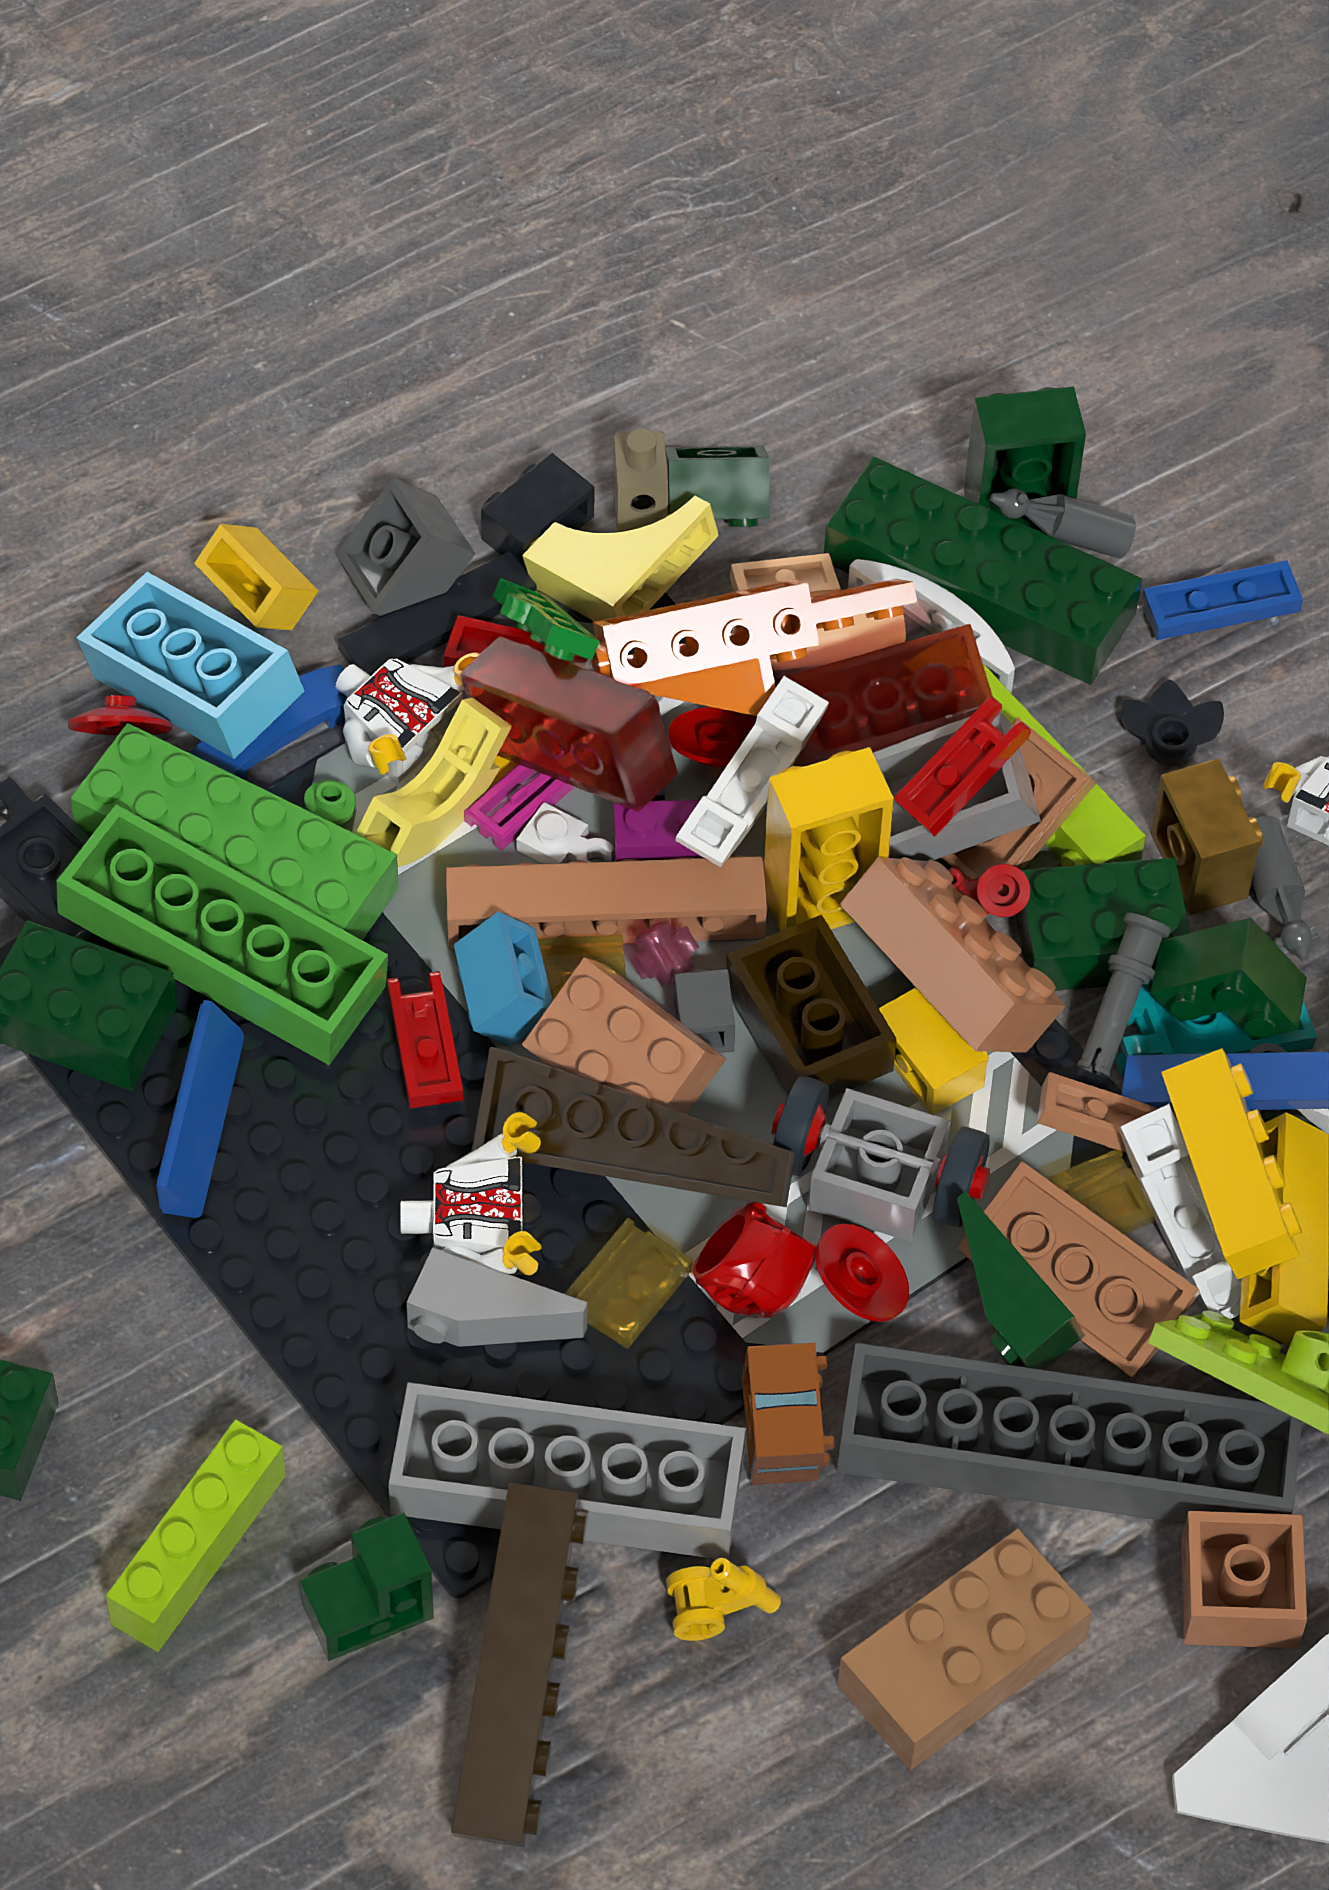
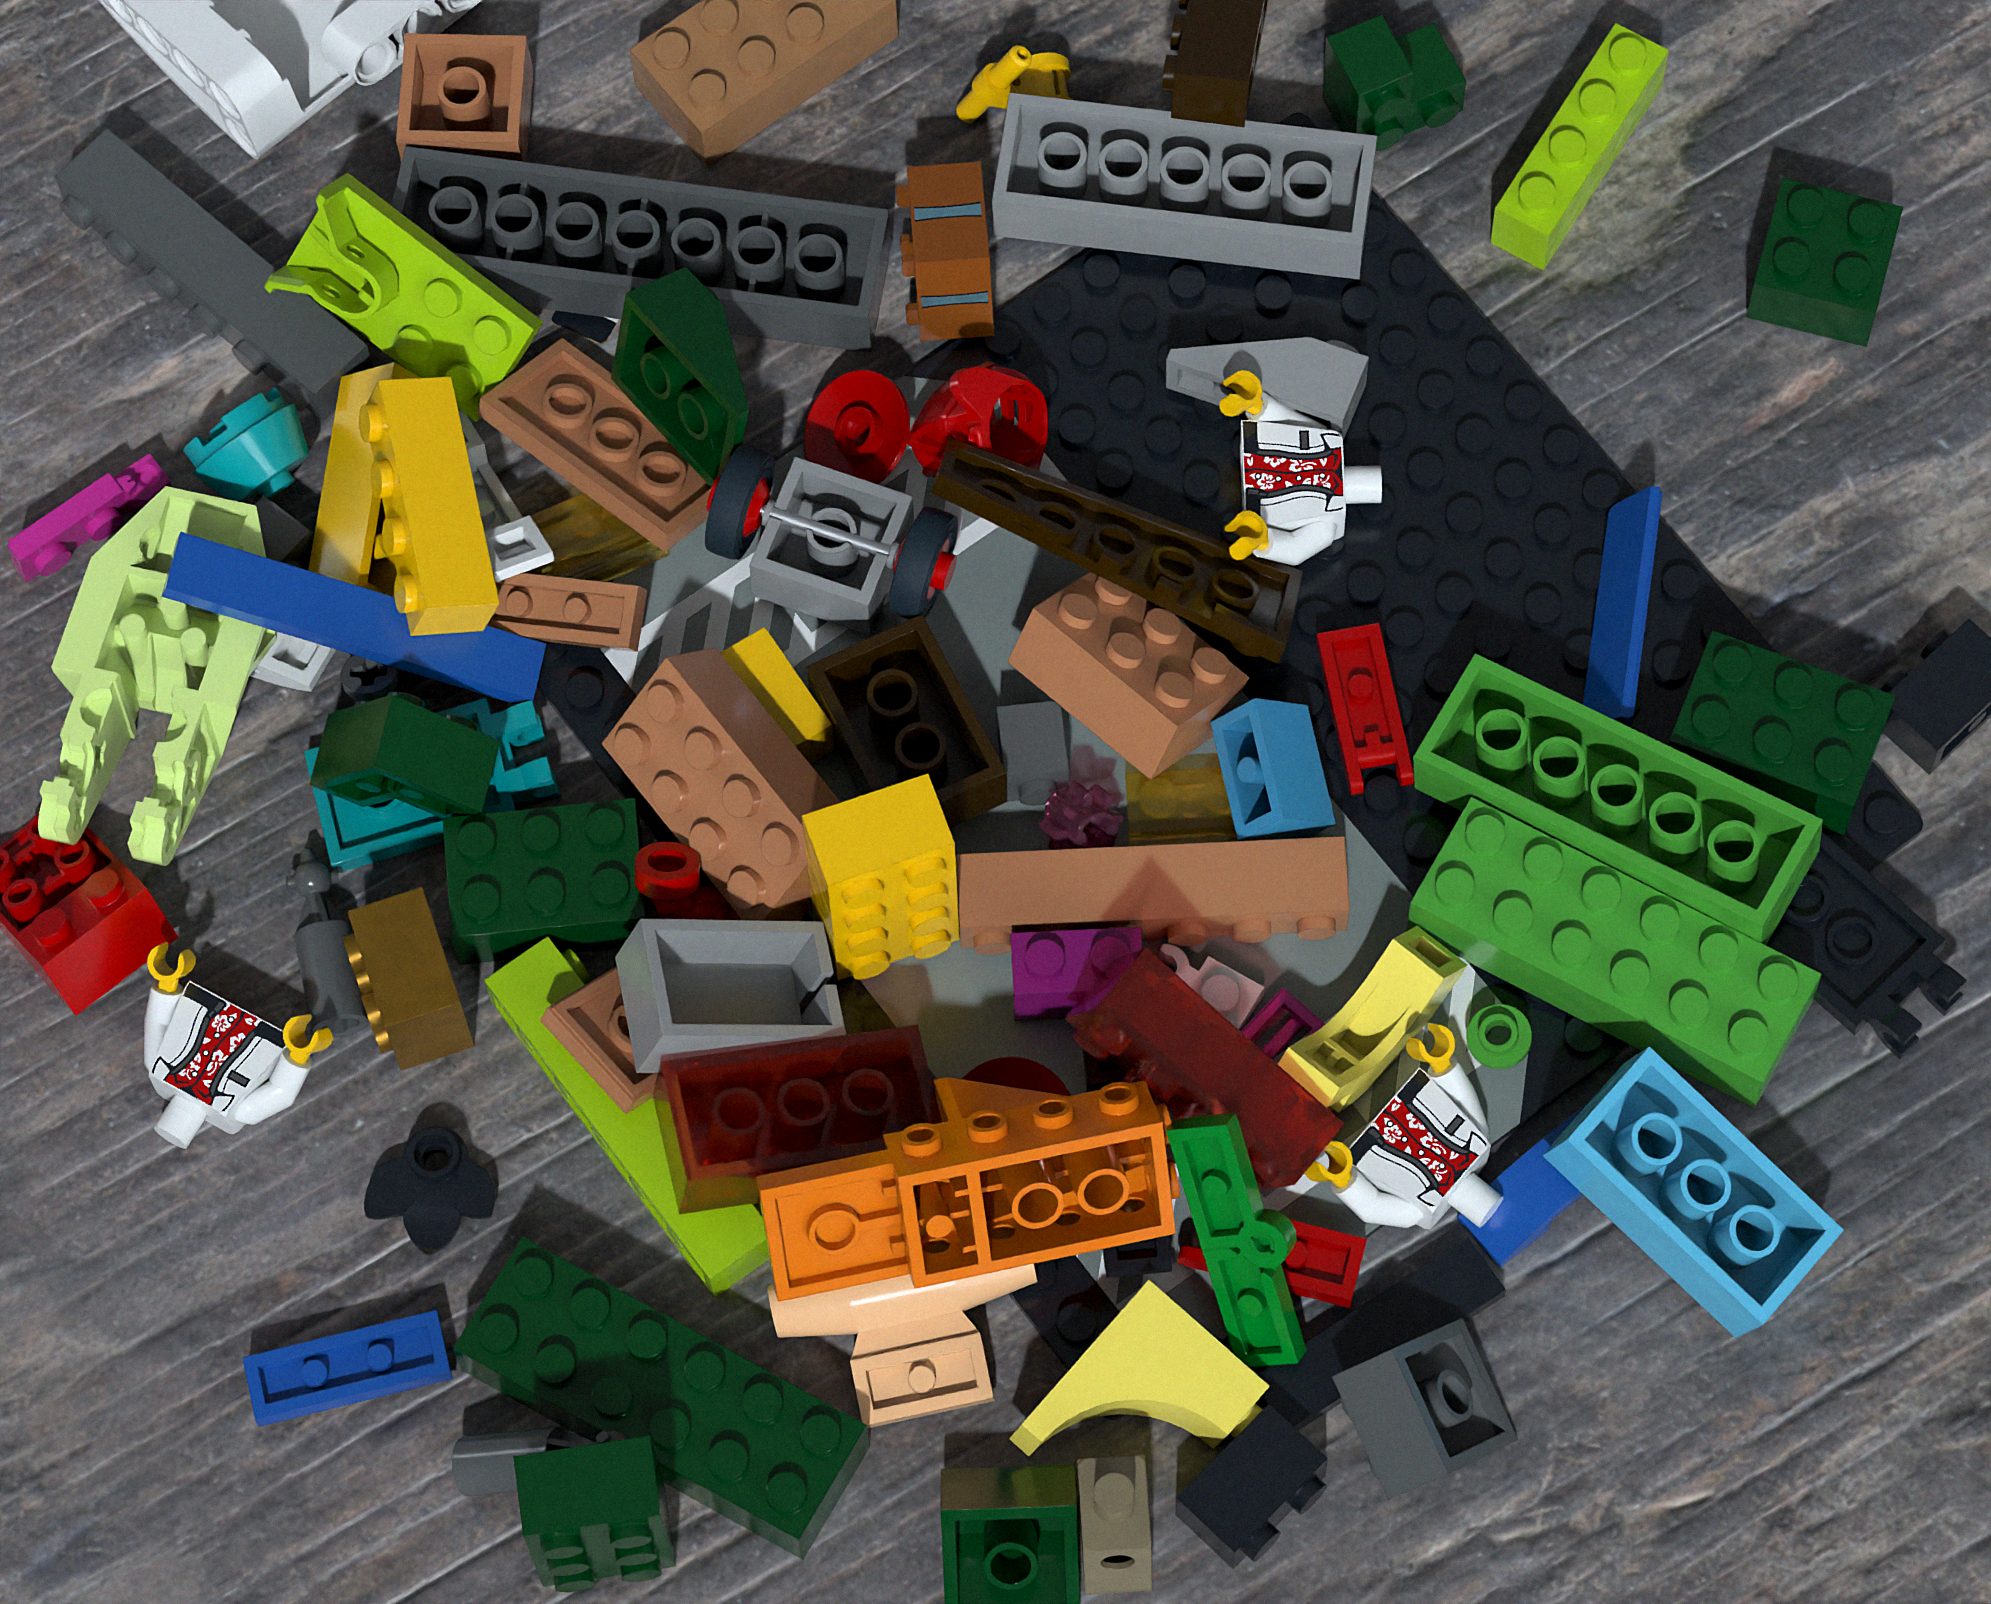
camera: 175 degrees left, 10 degrees up
(115, 715) = (1784, 1118): red dish -> none
(256, 577) = (1618, 1360): yellow brick -> none
(630, 1282) = (1121, 417): clear yellow plate -> none
(742, 789) = (979, 989): white slope -> none
(940, 611) = (669, 1265): white slope -> none
(960, 768) = (714, 960): red hinge -> none
(1129, 971) = (522, 765): dark grey pin -> none

